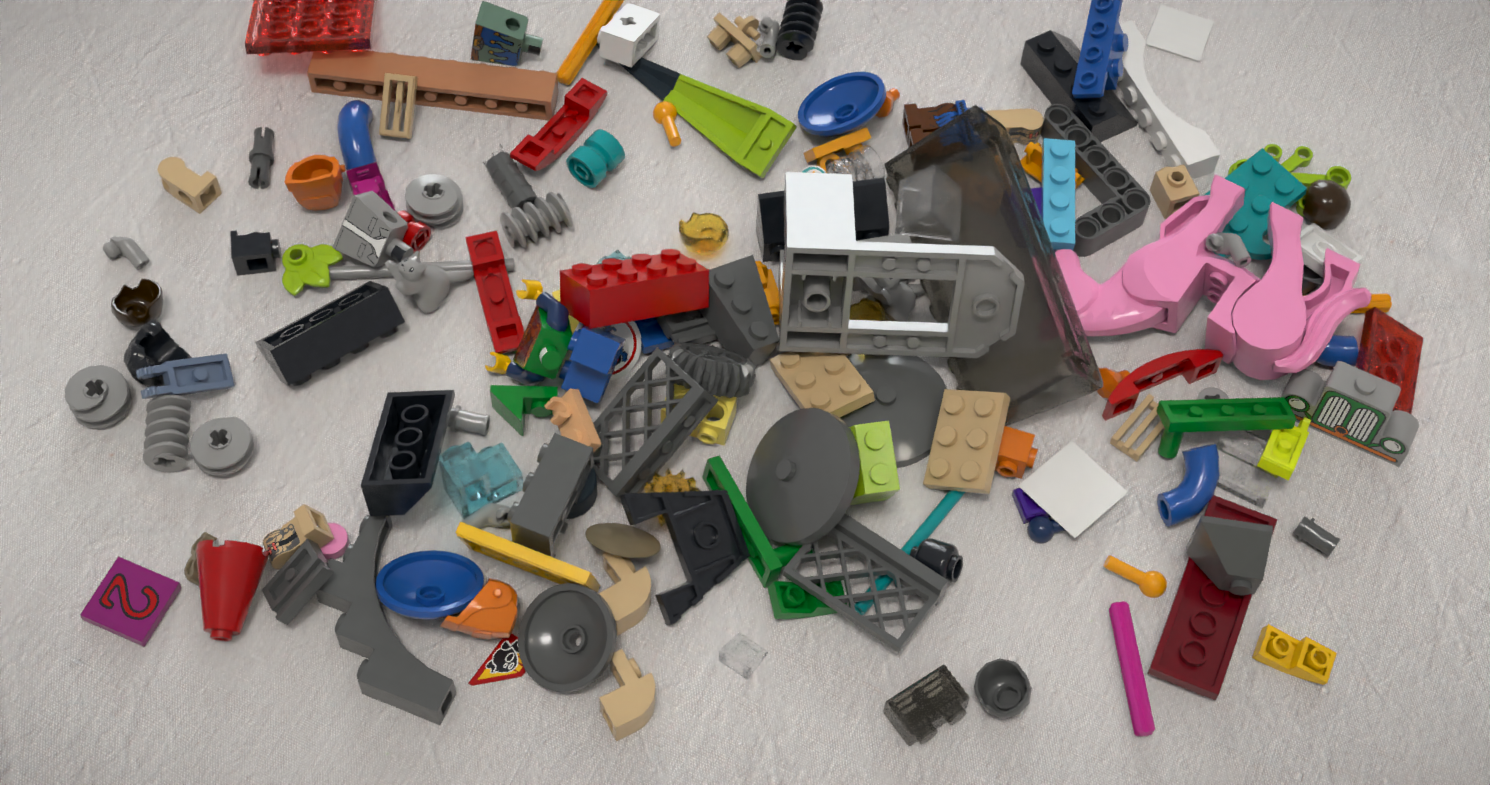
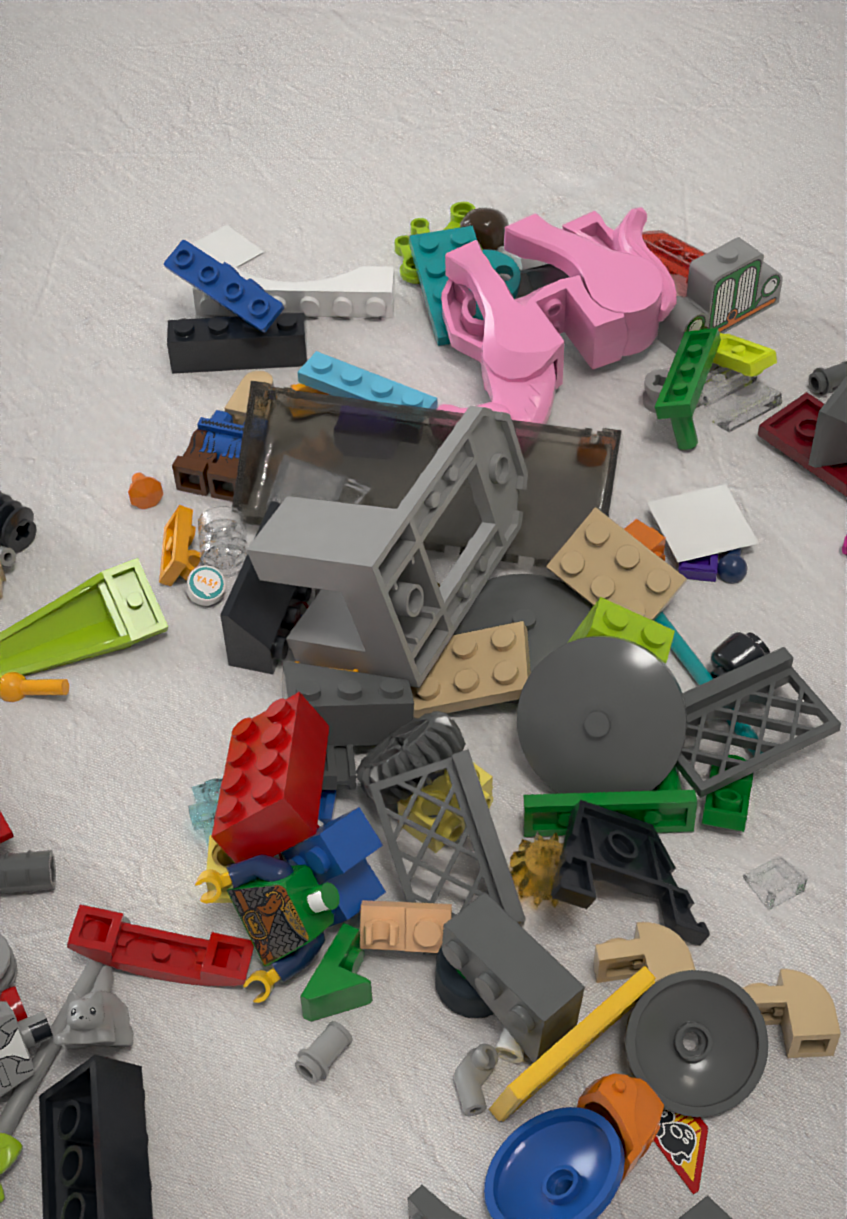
camera: 60 degrees left, 10 degrees down
(405, 450) = (360, 1117): black slope -> none
(479, 477) = (421, 1064): clear light blue brick -> none
(535, 219) = (82, 864): light grey piece -> none
(599, 154) = (37, 770): teal wheel -> none
(622, 540) = (587, 935): dark tan sticker -> none
(703, 233) = (211, 705): clear yellow hair -> none
(842, 104) = (132, 515): blue dish -> none
(1120, 195) = (387, 354): dark grey beam -> none
(1128, 424) = (660, 447): tan tile -> none
(1151, 583) = (826, 511): light orange bar -> none
(1172, 189) = (405, 319): tan brick -> none
(1190, 363) = (608, 390): red slope -> none
(1196, 487) = (747, 430): blue cylinder -> none
(1231, 245) = (530, 275): light grey arm -> none

